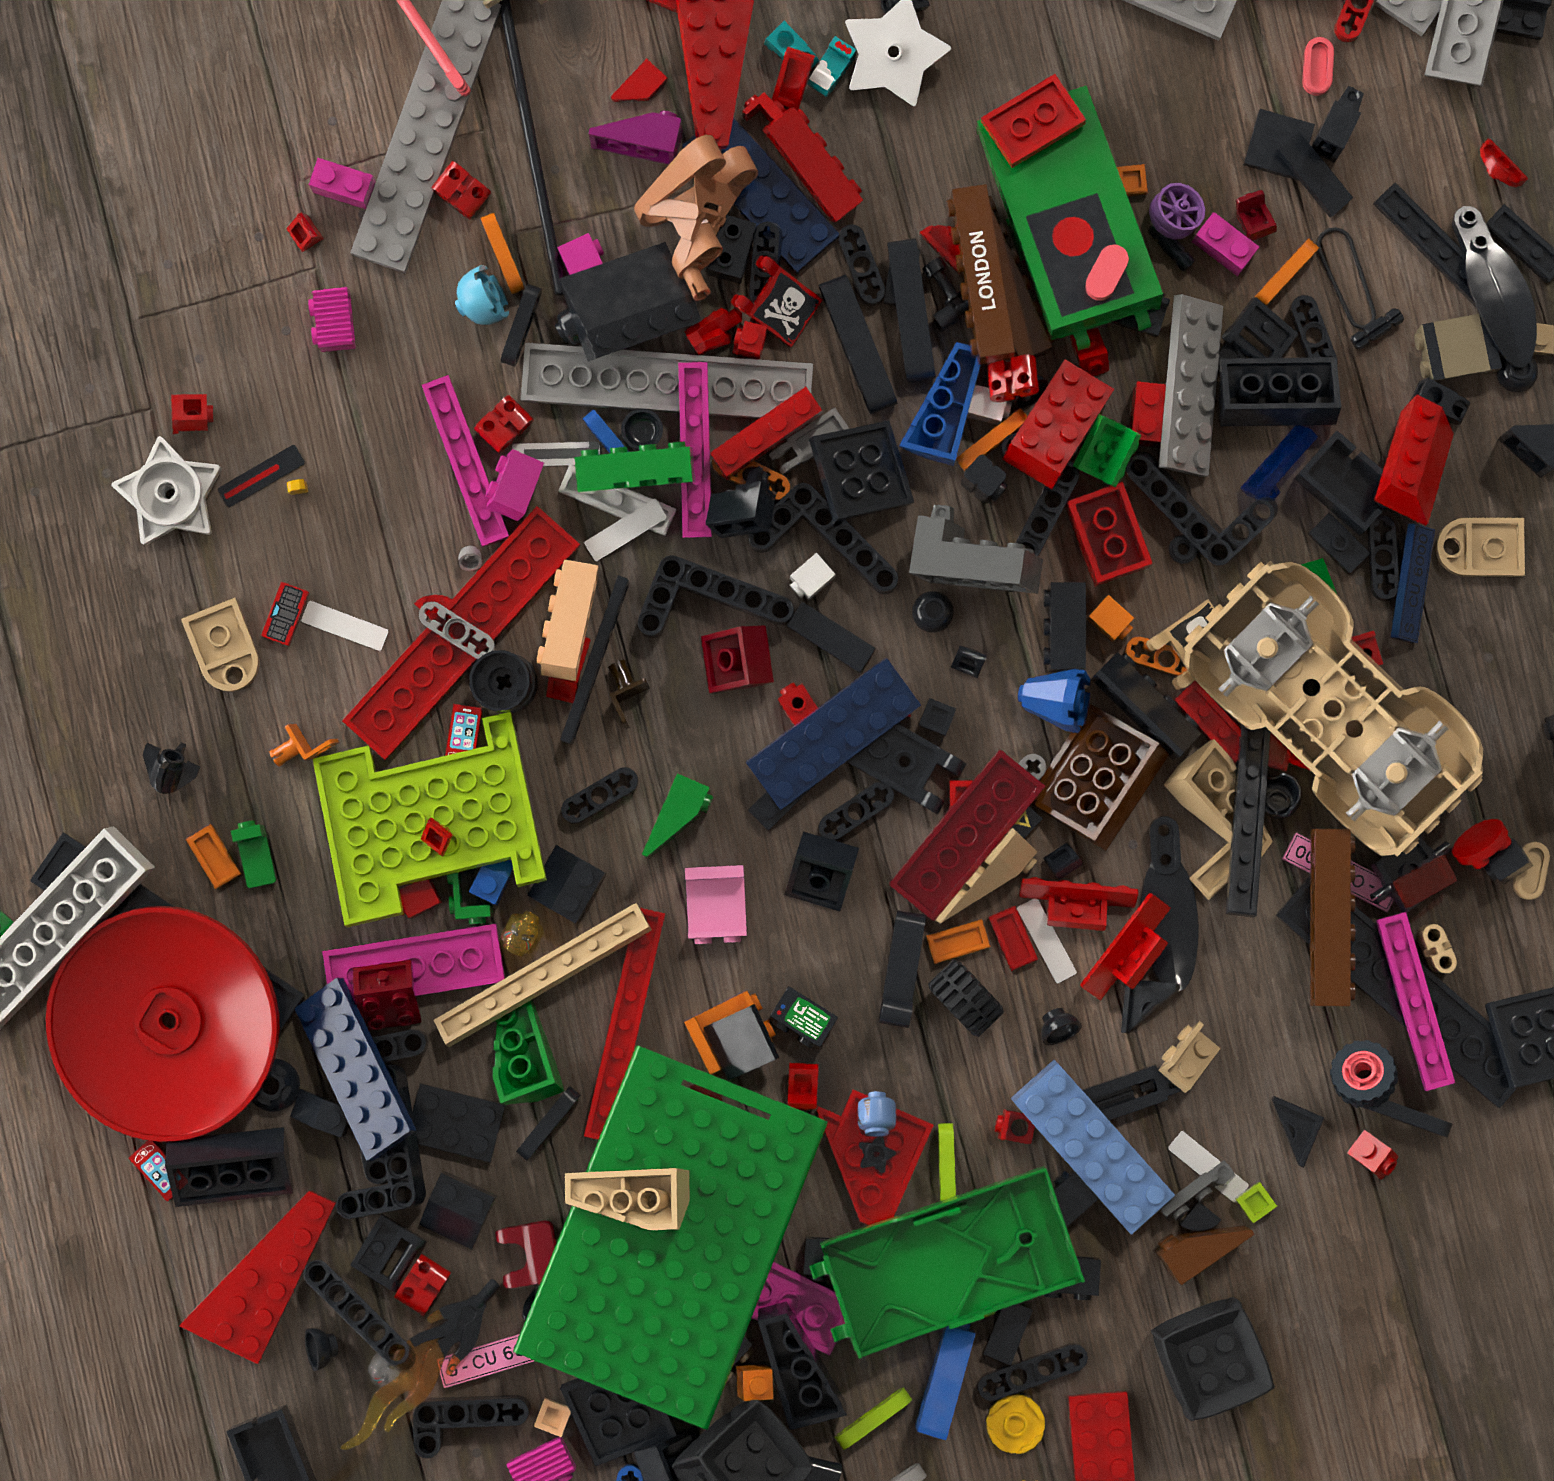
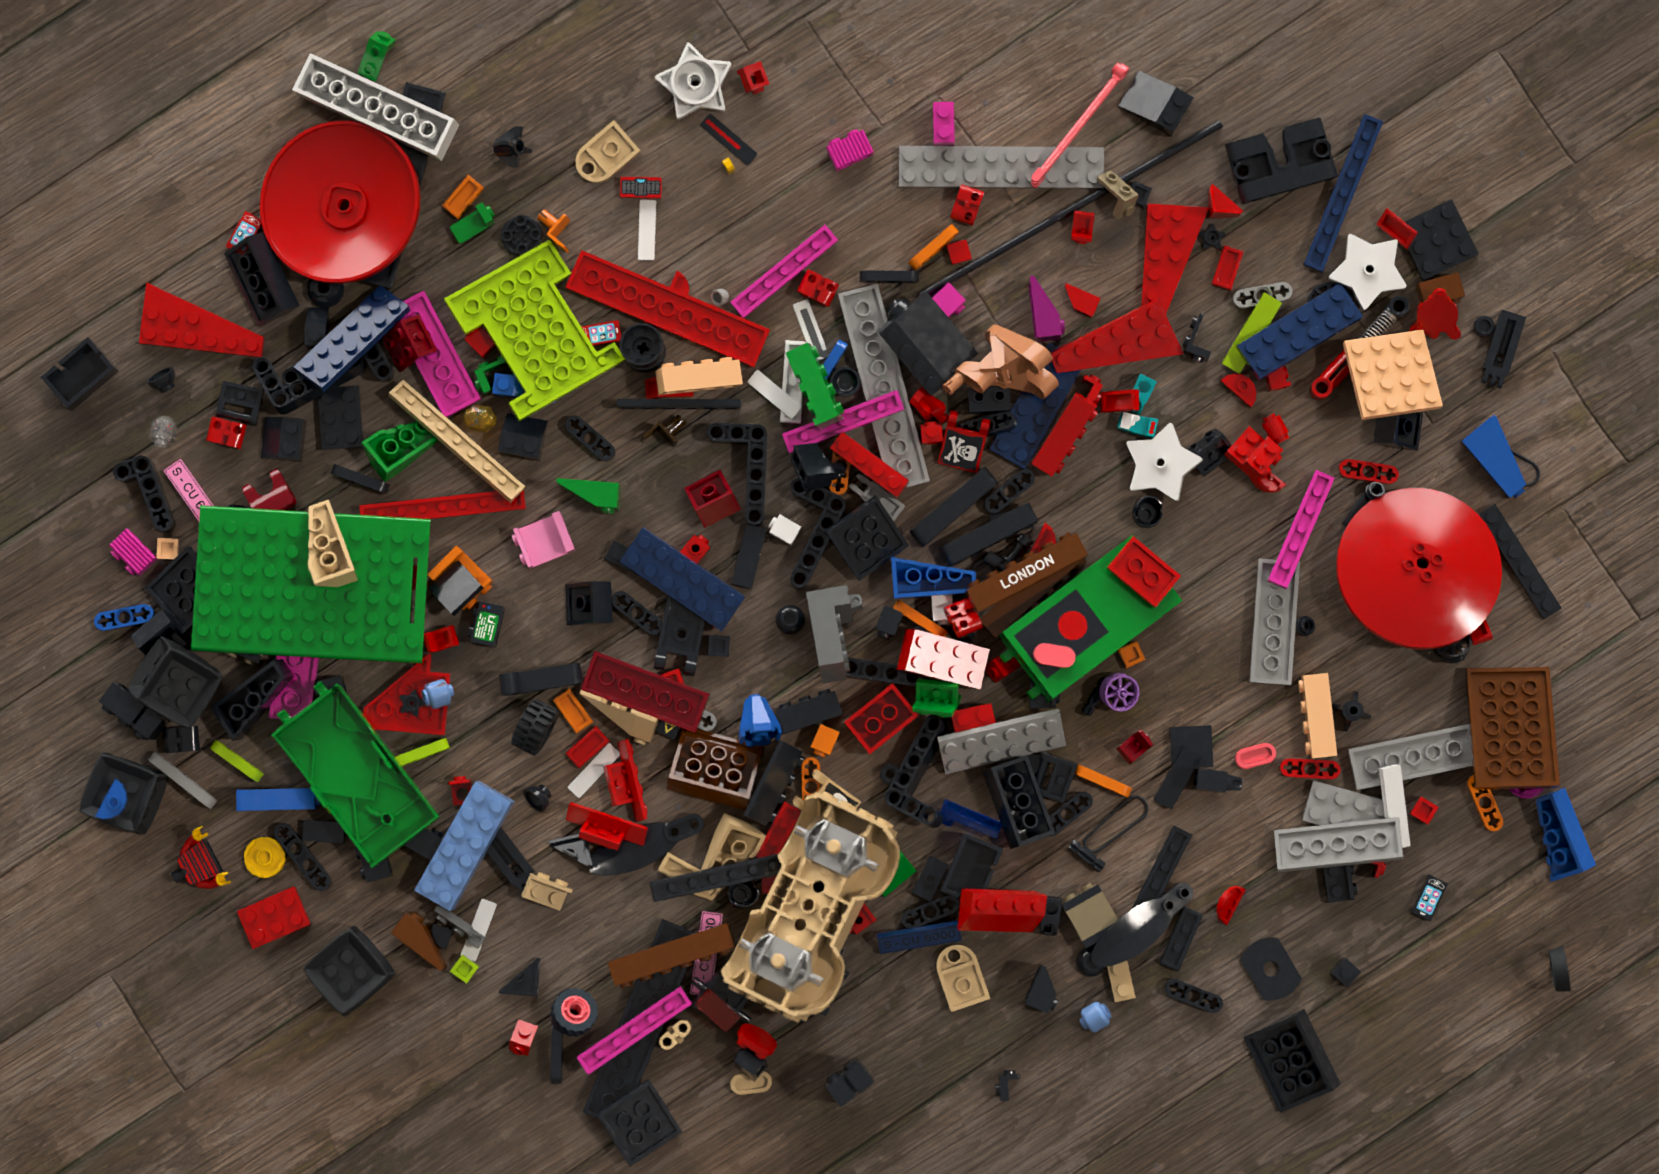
camera: 75 degrees right, 0 degrees up
(293, 795) = (521, 235): none -> black tile
(304, 232) = (903, 110): red slope -> none
(350, 1306) = (188, 406): black beam -> none
(431, 1347) = (175, 452): piece -> none
(437, 836) = (523, 339): red slope -> none
(443, 612) = (676, 291): light grey beam -> none
(481, 297) = (898, 243): medium azure cylinder -> none
(514, 484) = (778, 309): dark pink brick -> none
(520, 223) = (959, 252): none -> red tile
(544, 49) = (1082, 227): none -> red bracket
(754, 1382) = (233, 672): orange brick -> none
(951, 93) = (1147, 511): none -> black hair
(968, 661) = (764, 654): black slope -> none
(1063, 861) = (650, 762): black tile -> none
(1225, 244) = (1108, 732): dark pink brick -> none

